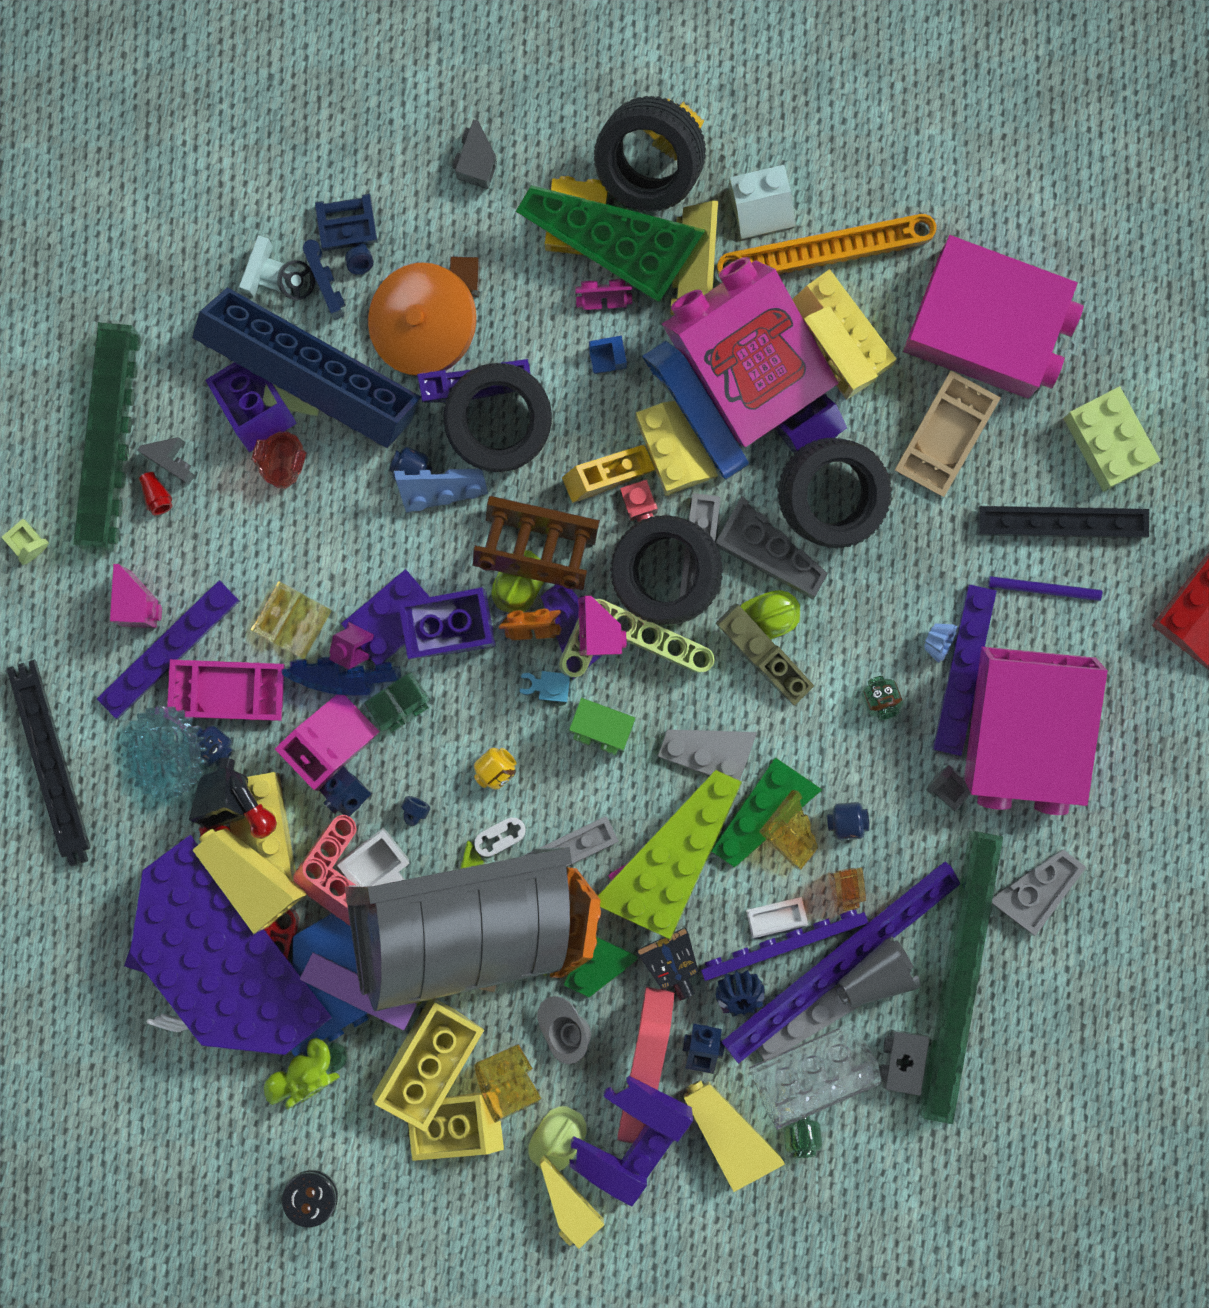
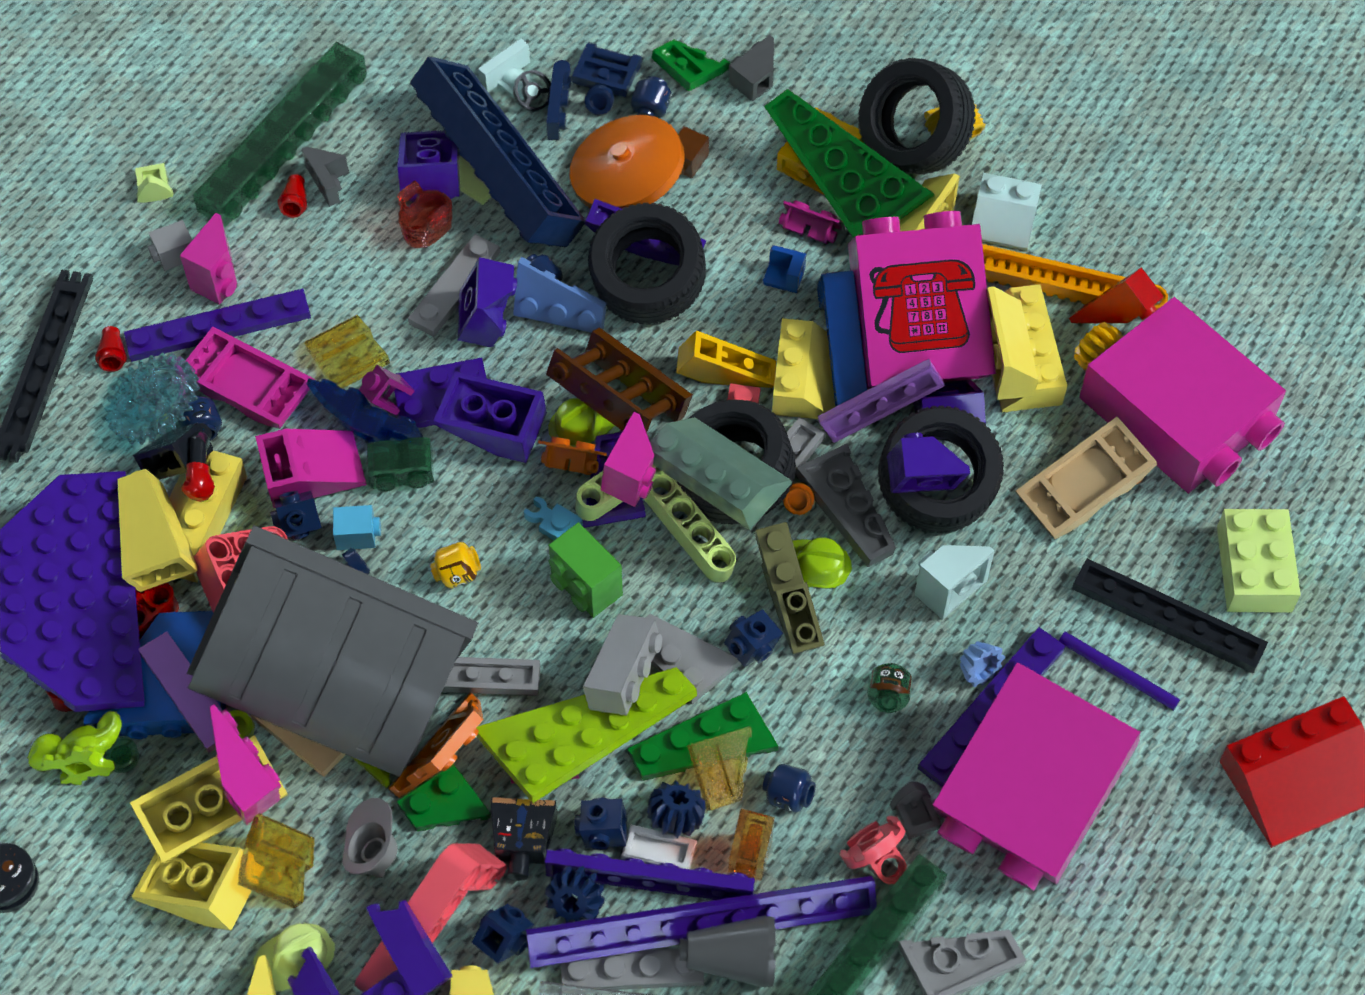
camera: 25 degrees right, 25 degrees down
(84, 598) = (169, 244): none -> light grey brick
(96, 720) = (110, 351): none -> red cone
(341, 509) = (444, 295): none -> light grey plate
(380, 523) = (484, 301): none -> dark purple slope
(397, 777) = (355, 527): none -> medium azure brick
(403, 236) = (651, 97): none -> dark blue head
(414, 181) = (688, 64): none -> green wing
(458, 1050) = (245, 781): none -> dark pink slope
(669, 596) = (718, 470): none -> sand green slope
(678, 794) = (622, 664): none -> light grey brick
(731, 567) = (799, 499): none -> orange plate
(737, 925) = (602, 823): none -> dark blue brick
(757, 452) = (881, 400): none -> medium lavender tile
(759, 713) = (753, 638): none -> dark blue brick
(765, 887) = (676, 809): none -> dark blue gear
(831, 519) = (924, 465): none -> dark purple slope
(886, 583) = (952, 576): none -> light aqua slope
(904, 258) = (1122, 302): none -> red slope
(904, 304) = (1095, 343): none -> yellow gear
(937, 838) = (875, 845): none -> coral tile

